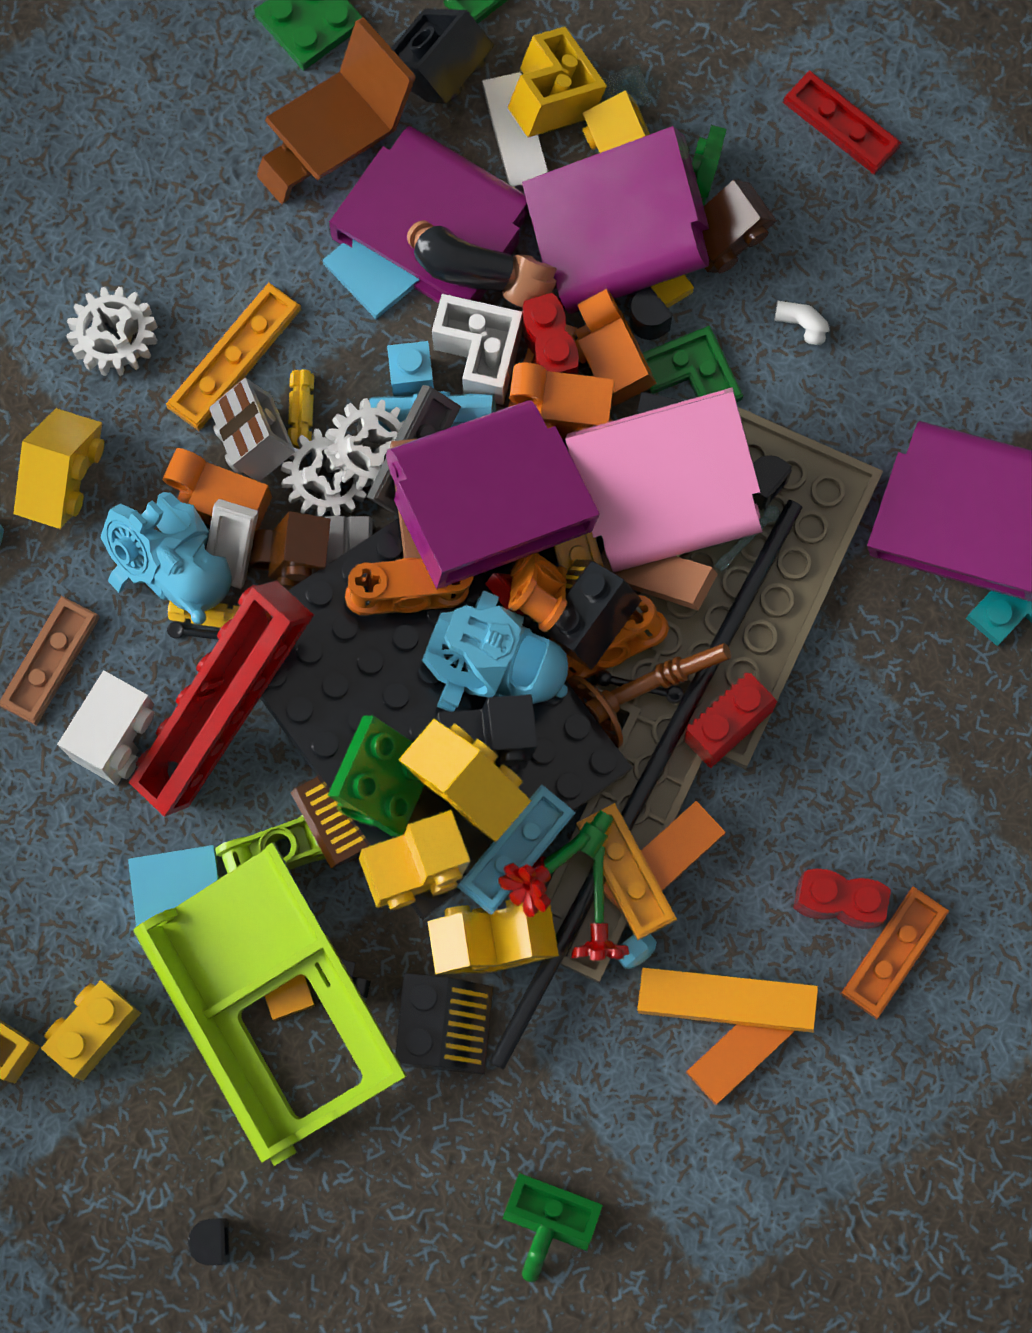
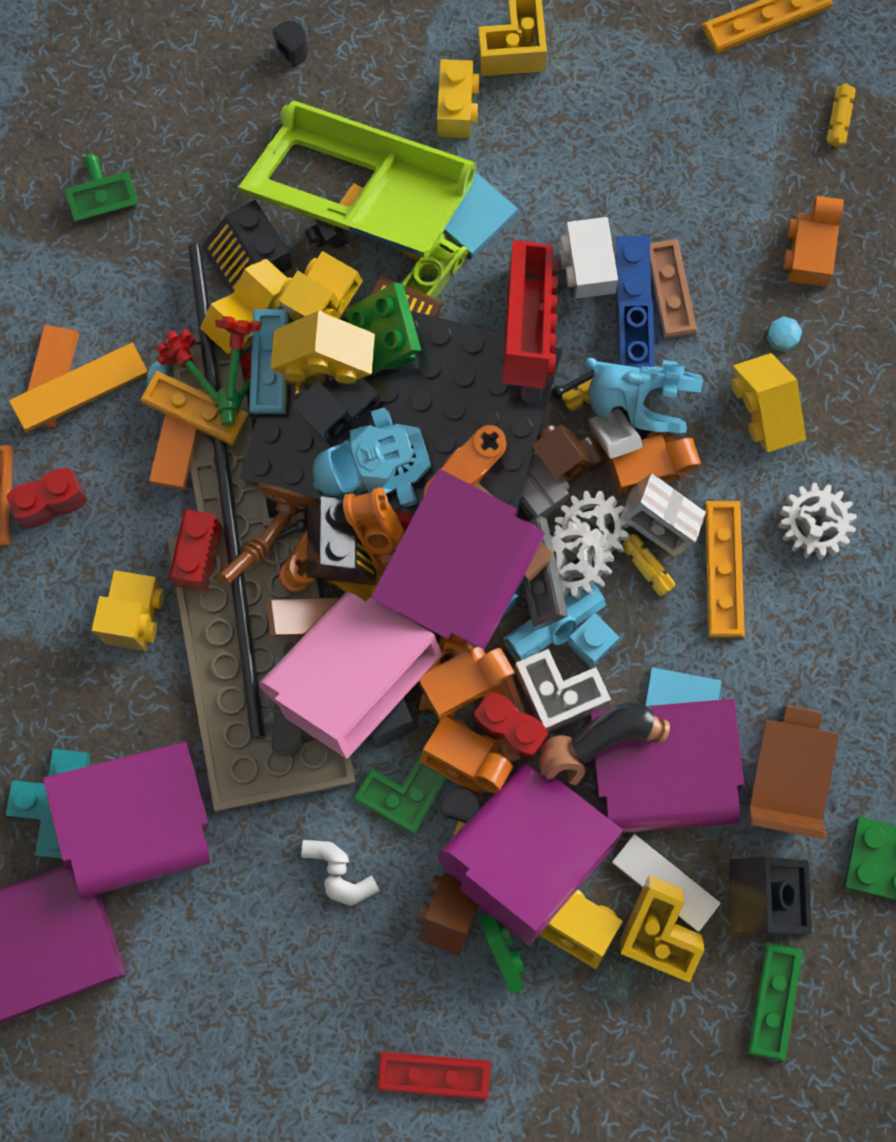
camera: 145 degrees right, 0 degrees up
(111, 648) = (634, 301): none -> blue slope
(799, 363) = (327, 851): none -> white arm
(843, 711) = (129, 611): none -> yellow brick

